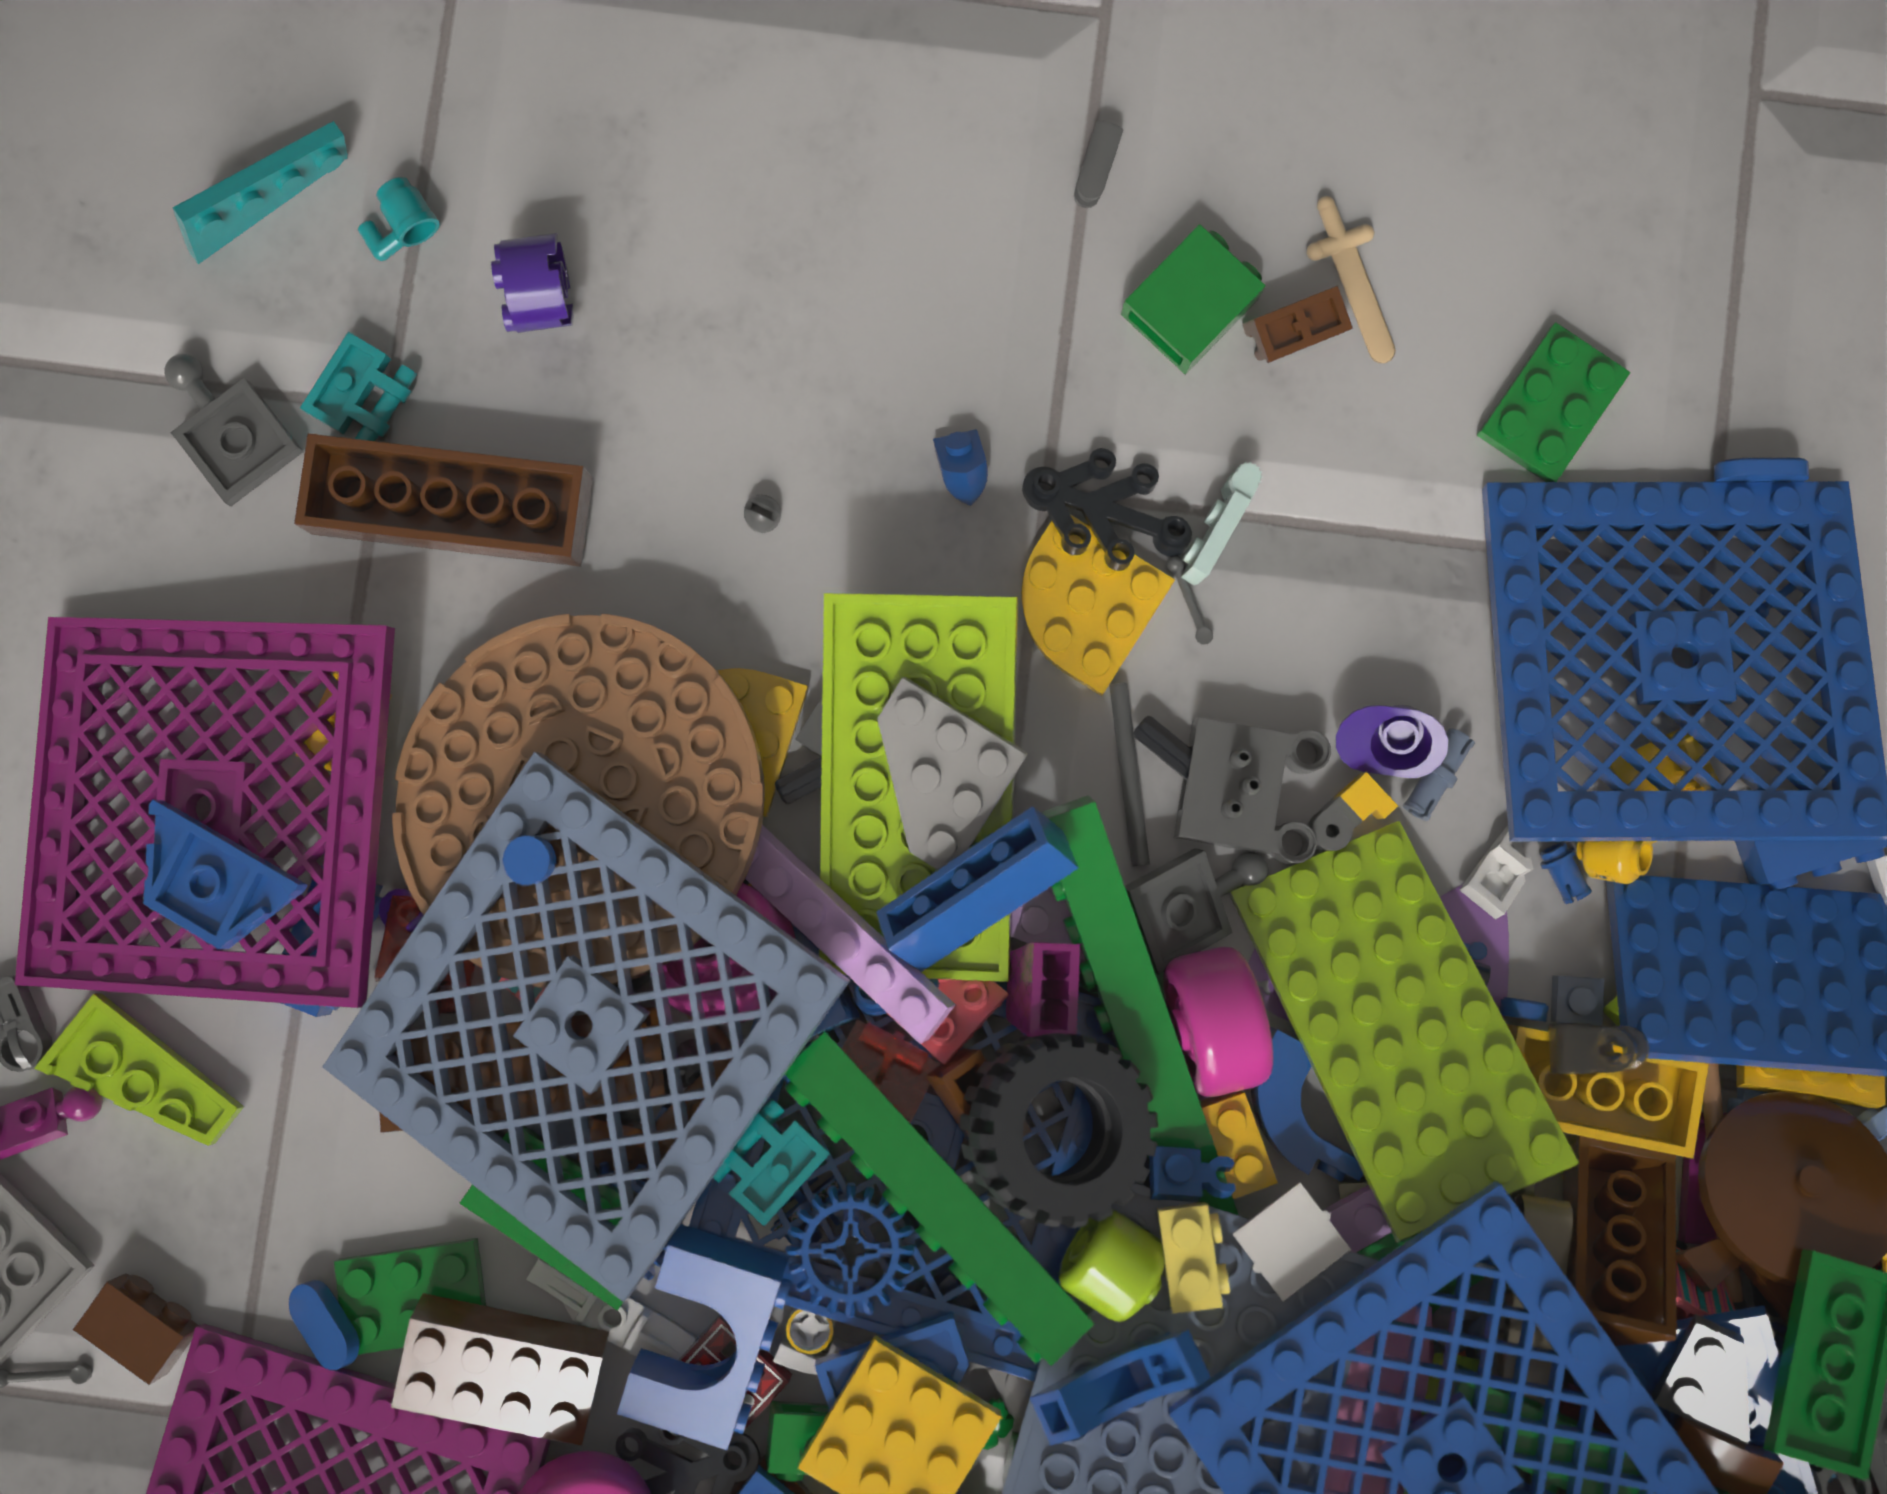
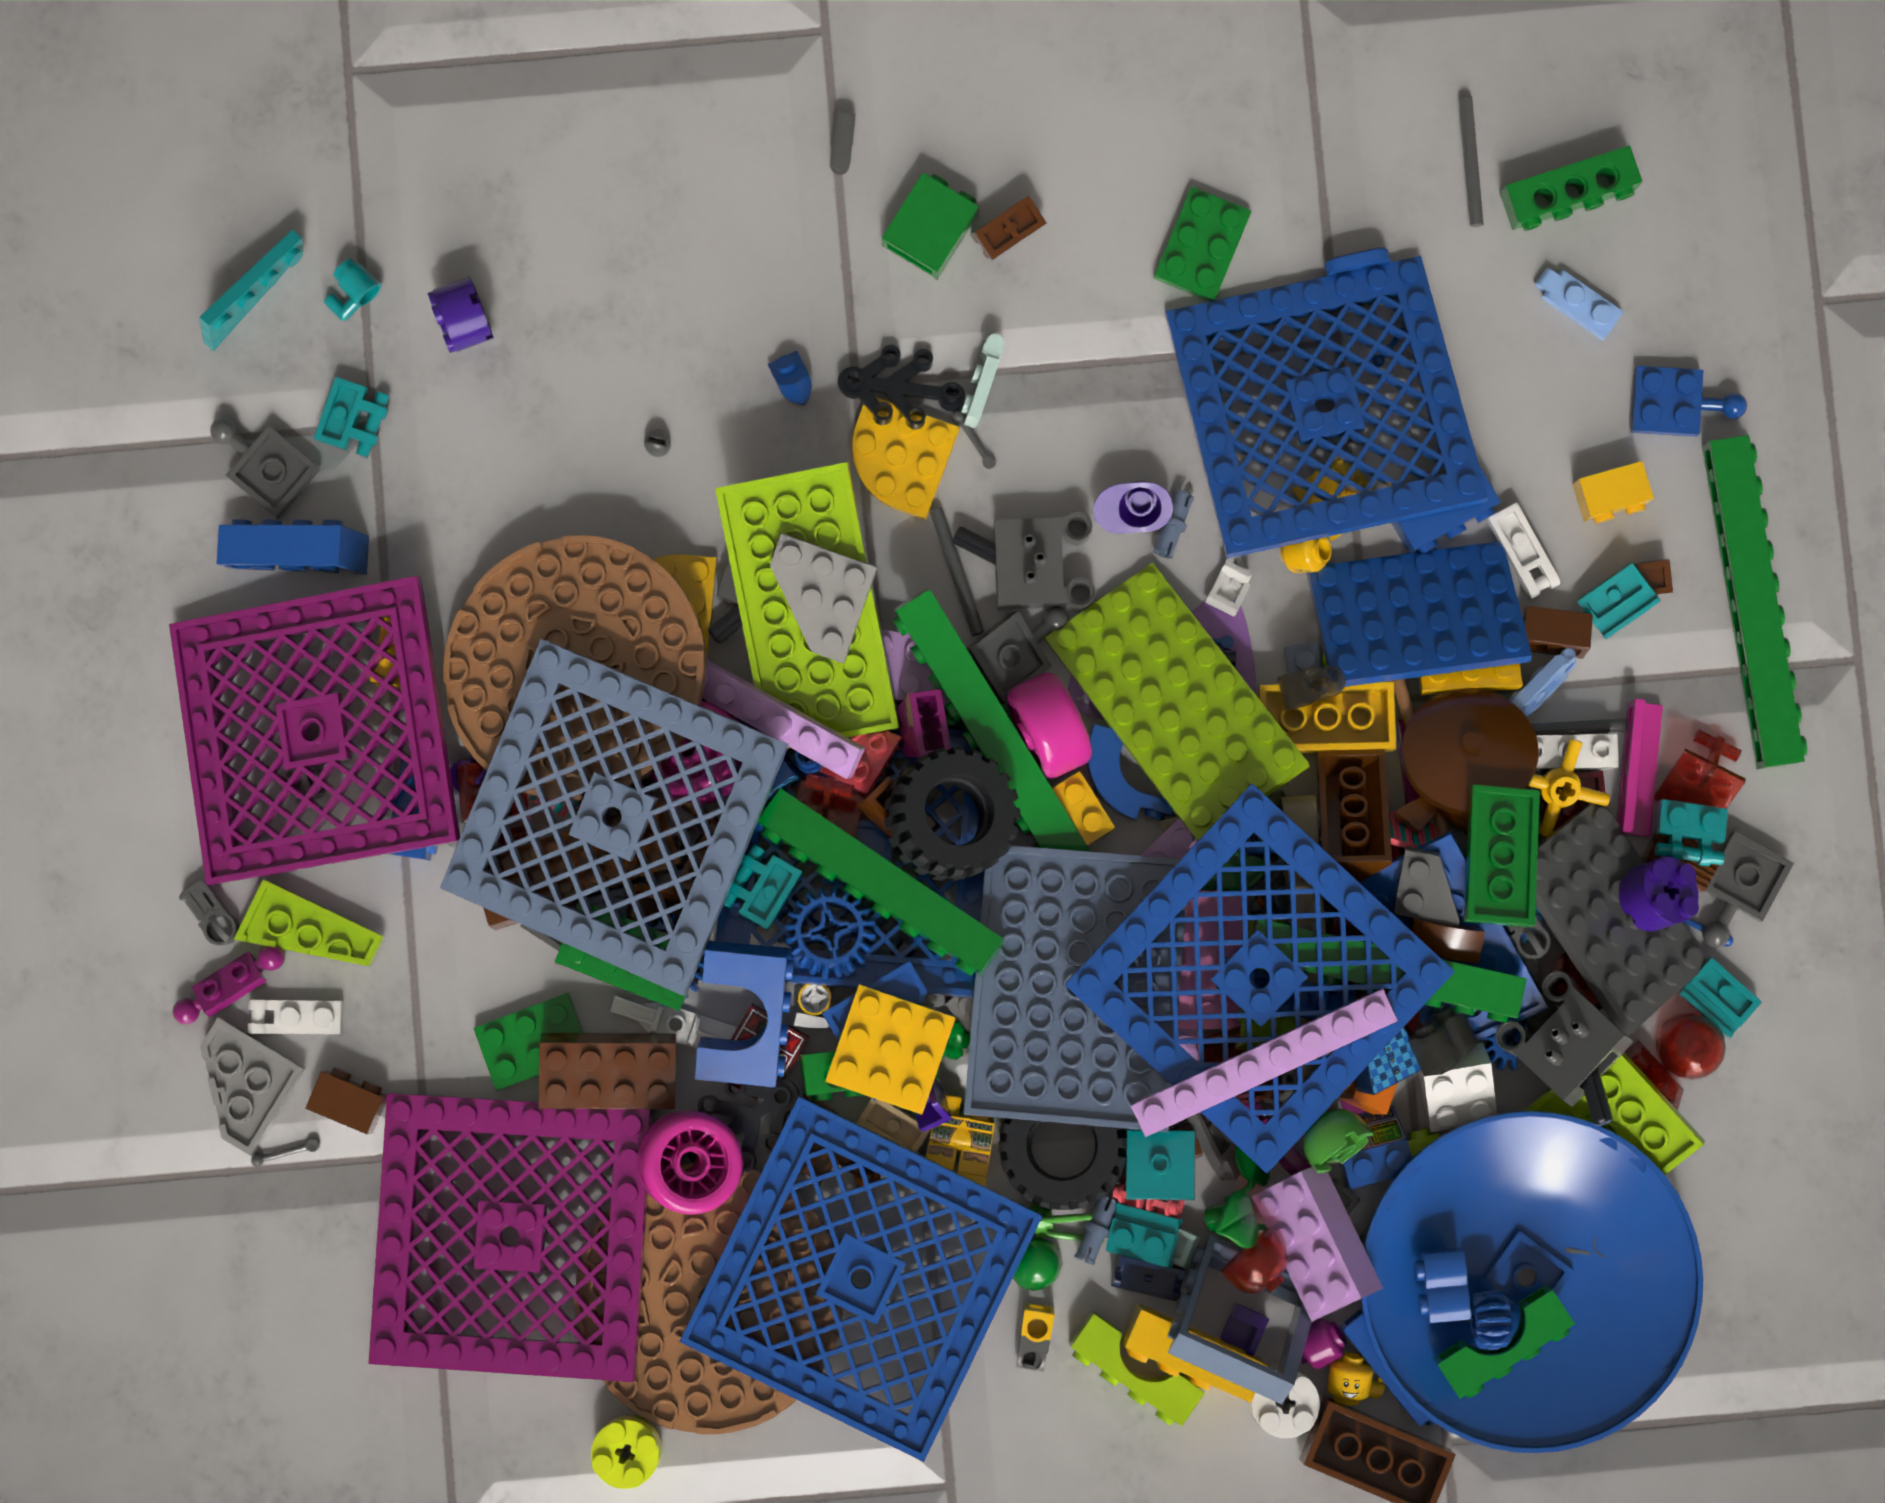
camera: 10 degrees left, 0 degrees up
(98, 1191) = (296, 1017): none -> white plate
(210, 880) = (334, 777): blue wing -> none
(238, 548) = (292, 546): none -> blue wedge
(324, 1324) = (476, 1071): blue tile -> none
(444, 499) = (432, 481): reddish brown brick -> none
(529, 860) = (554, 711): blue tile -> none
(976, 889) = (862, 665): blue brick -> none
(1113, 1266) = (1009, 899): lime head -> none
(1118, 1384) = (1028, 975): blue arch -> none
(1181, 1176) = (1045, 833): blue plate -> none
(1190, 1259) = (1059, 883): light yellow brick -> none
(1291, 1241) = (1127, 859): white piece -> none
(1343, 249) = (1030, 165): tan sword -> none
(1347, 810) = (1107, 572): leg -> none
(1524, 1009) = (1264, 674): blue tile -> none
(1565, 872) = (1276, 573): blue pin -> none

